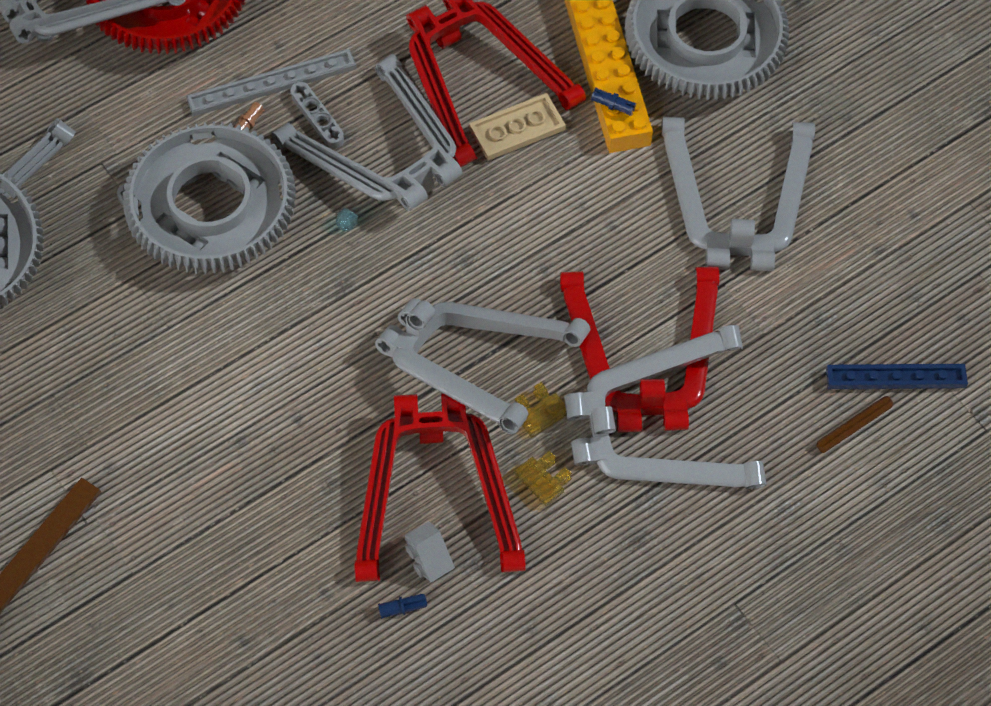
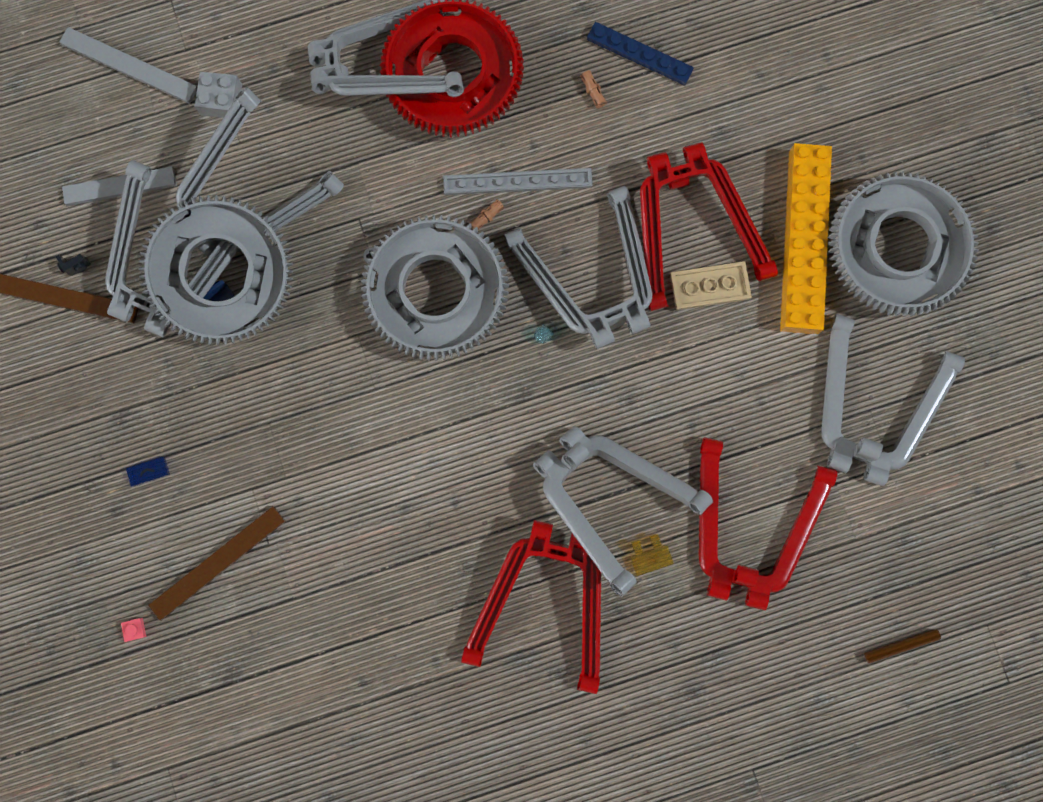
camera: 20 degrees right, 20 degrees up
(316, 115) = (545, 225): light grey beam -> none
(402, 605) = (491, 693): dark blue axle -> none
(429, 552) = (522, 659): light grey brick -> none
(539, 481) = (631, 620): clear yellow plate -> none
(599, 448) = (695, 595): light grey piece -> none
(613, 101) = (799, 294): dark blue pin -> none
(896, 376) = (952, 615): dark blue plate -> none

